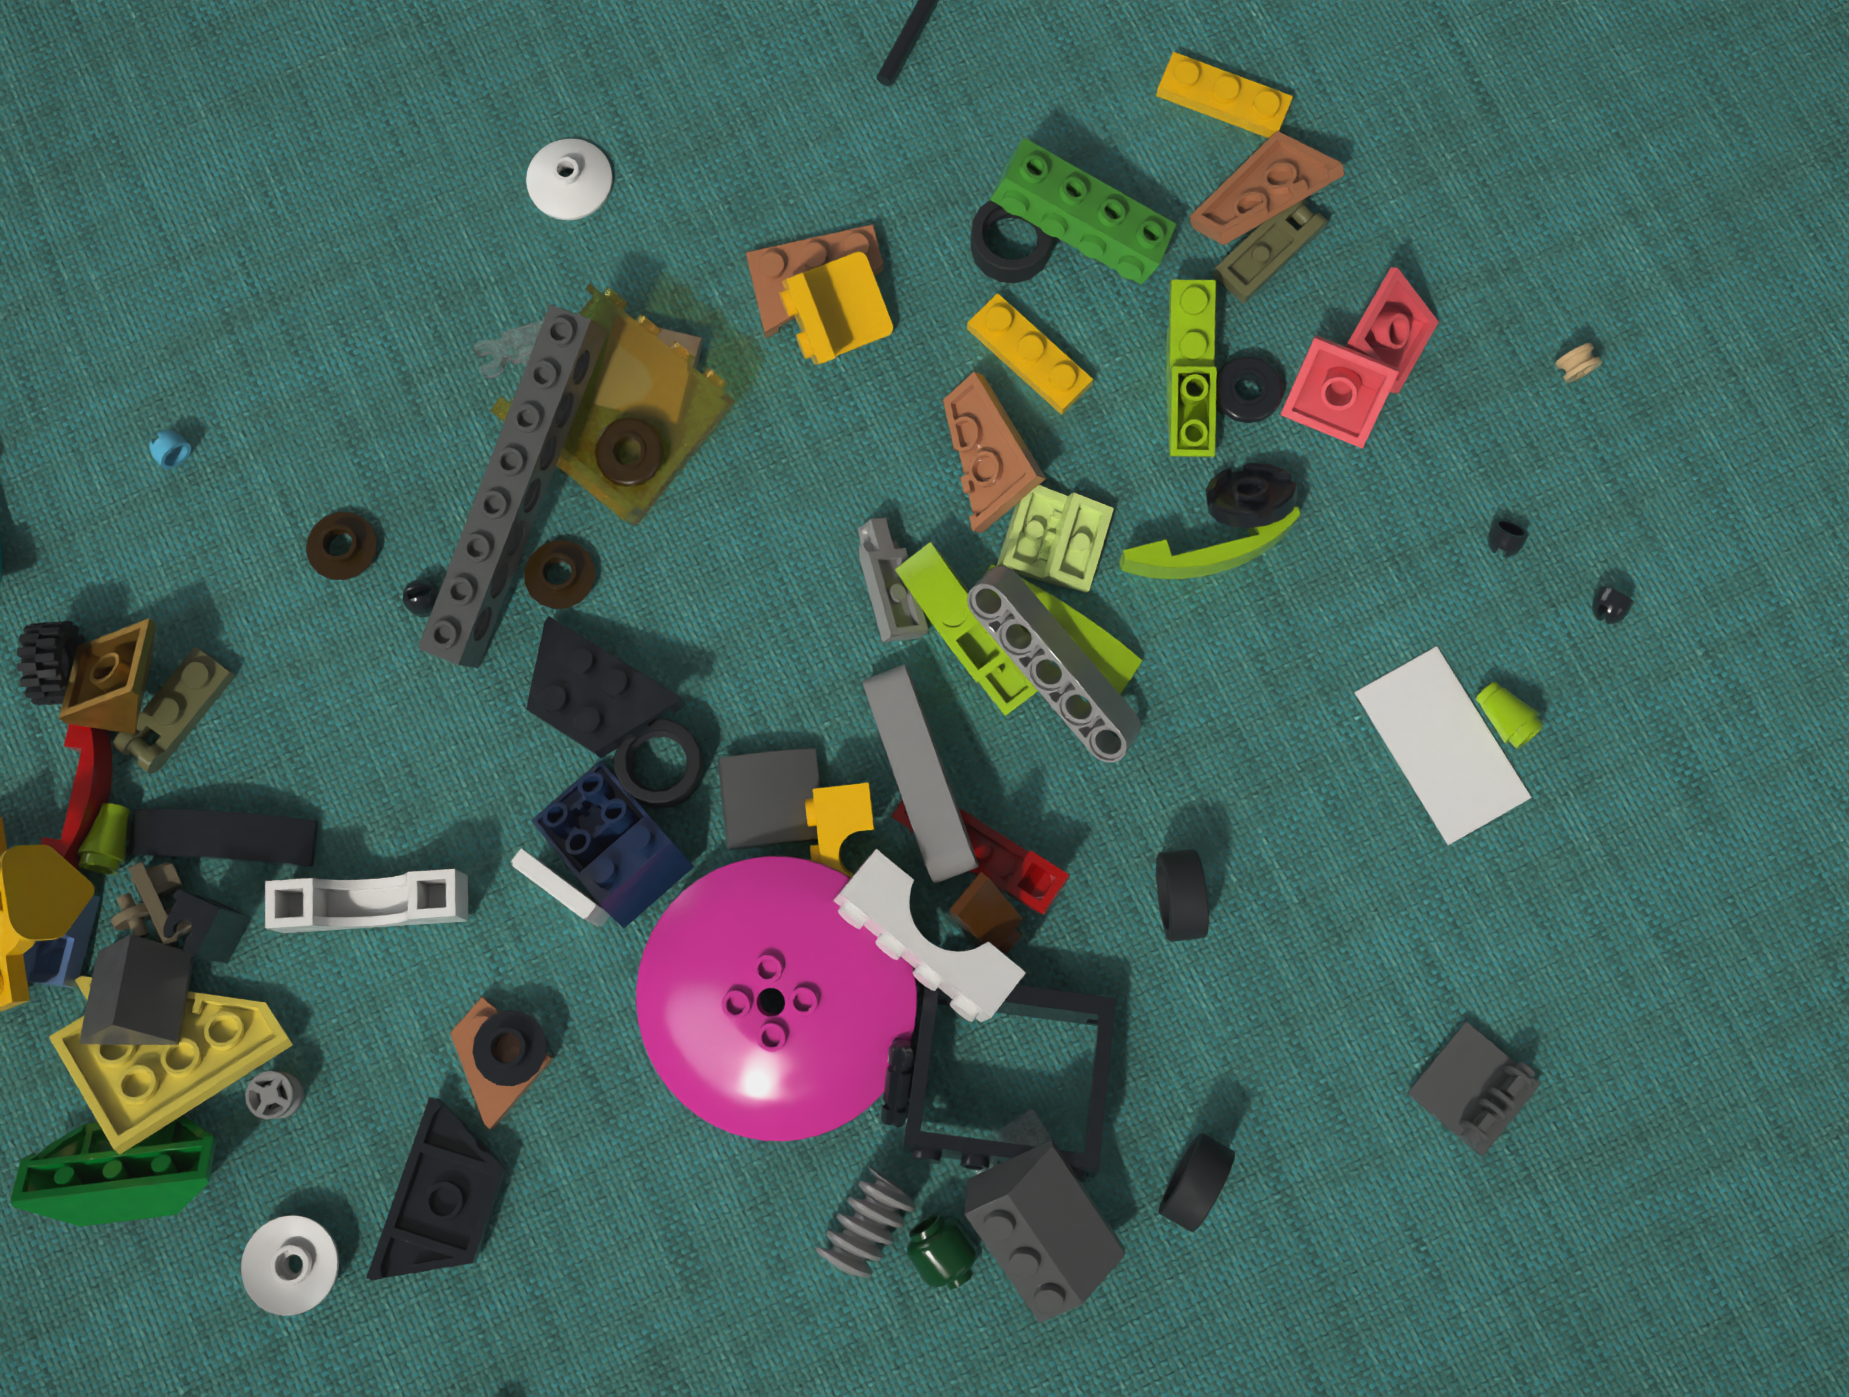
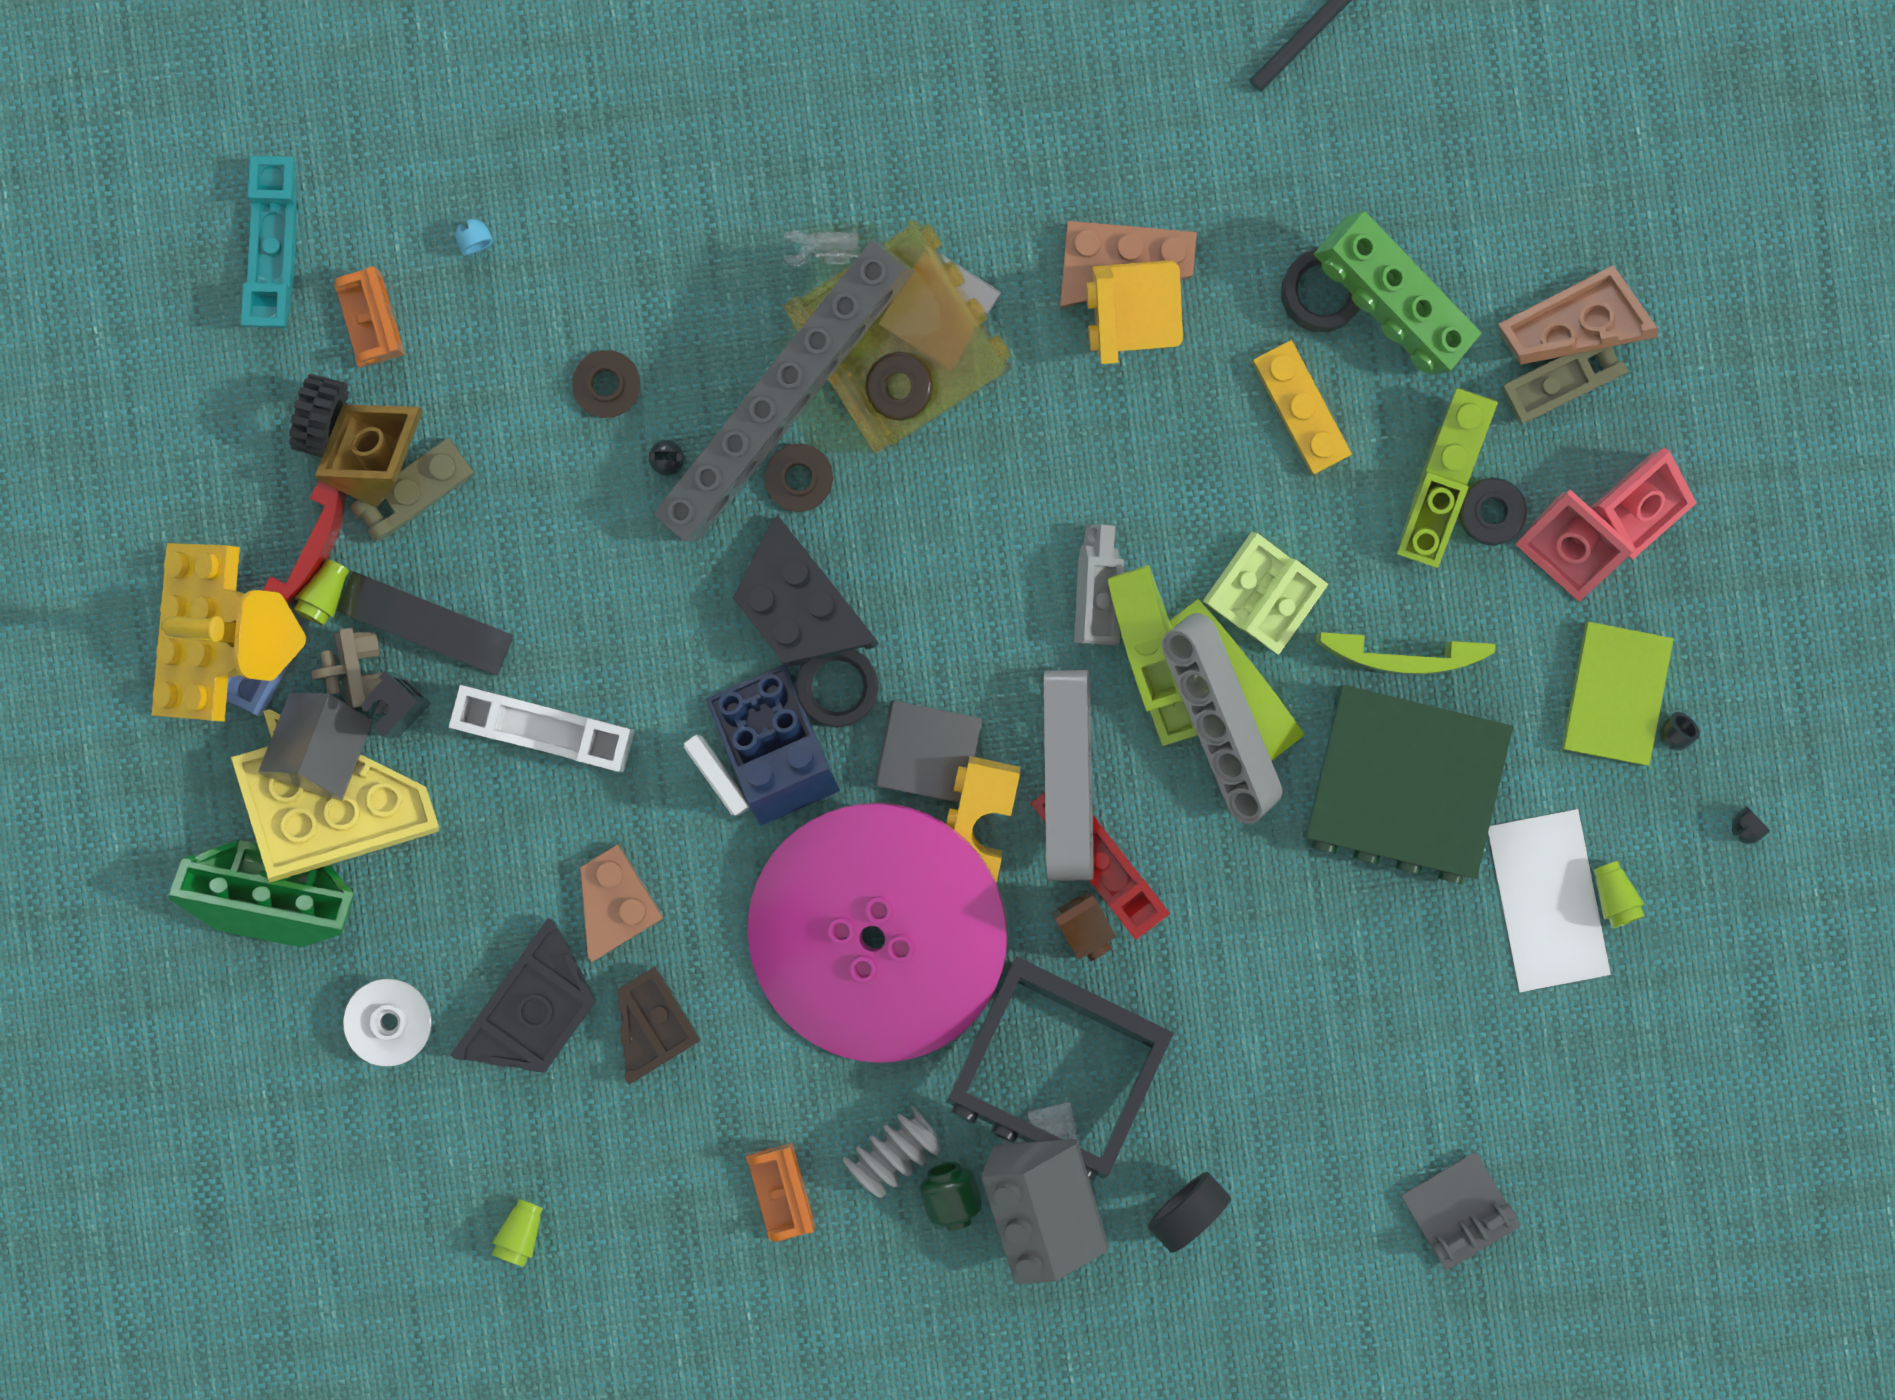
camera: 15 degrees right, 10 degrees up
(85, 555) = (369, 317): none -> orange hinge
(265, 1091) = (406, 876): light grey wheel -> none
(531, 1052) = (651, 894): black piece -> none
(572, 195) = (925, 107): white dish -> none
(572, 1174) = (652, 1024): none -> dark brown wing
(763, 1309) = (781, 1192): none -> orange hinge
(880, 901) = (996, 884): white arch -> none
(898, 1082) = (960, 1041): black axle -> none
(991, 451) = (1233, 497): nougat wing -> none
(1182, 895) = (1264, 962): black tyre -> none
(1223, 95) = (1576, 210): yellow plate -> none
(1251, 496) = (1457, 618): black tile -> none
(1262, 672) = (1408, 784): none -> dark green panel
(1433, 522) = (1617, 693): none -> lime tile
(1578, 362) = (1809, 588): tan bush -> none

